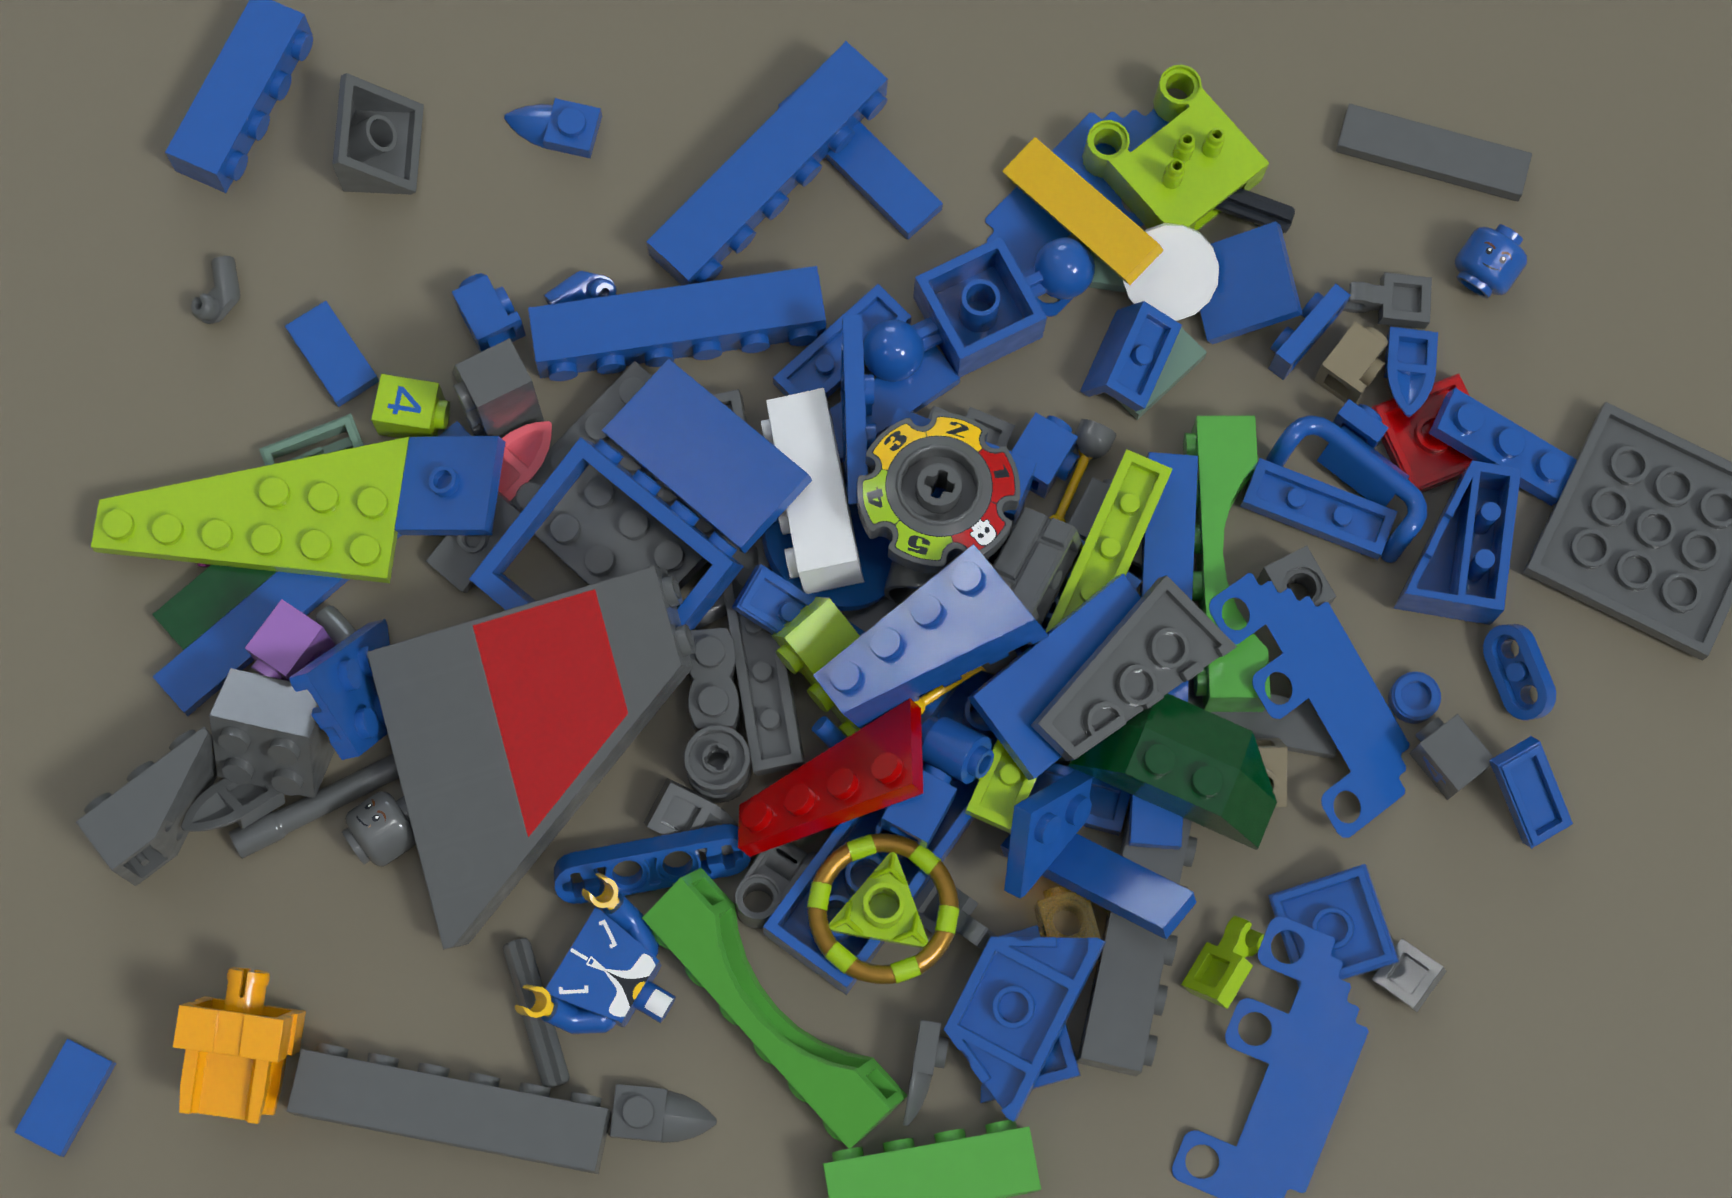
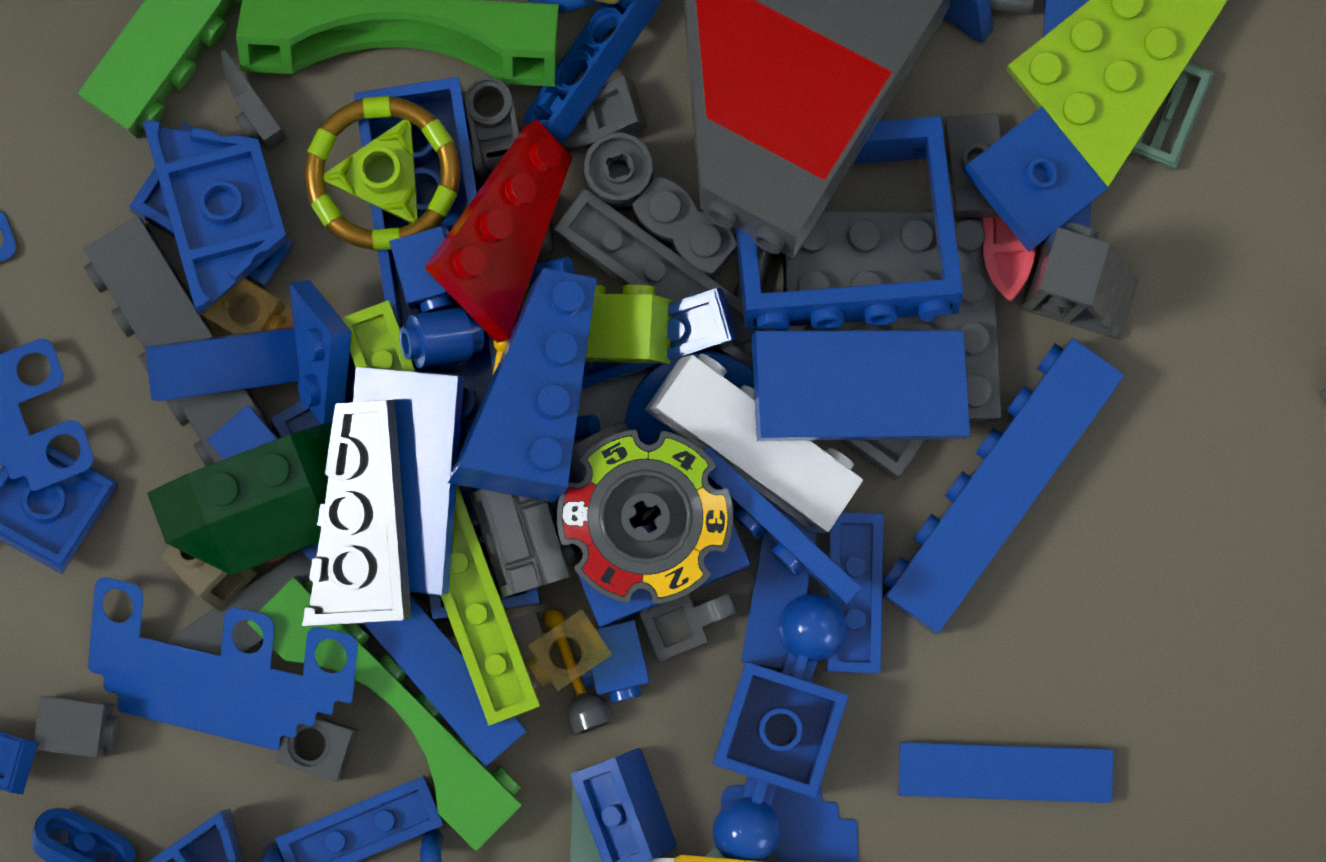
camera: 140 degrees right, 10 degrees up
(332, 353) = (1241, 201): blue tile -> none
(409, 408) = (1133, 212): lime brick -> none
(487, 312) = (1157, 346): blue brick -> none
(559, 126) = (1268, 559): blue plate -> none
(581, 286) = (1107, 444): blue arm -> none
(769, 167) = (1062, 682): blue brick -> none
(928, 905) = (310, 232): dark grey plate -> none
(1052, 484) = (592, 646): none -> clear yellow brick
(1223, 968) = (101, 388): lime plate -> none
(1414, 697) = (148, 751): blue tile -> none

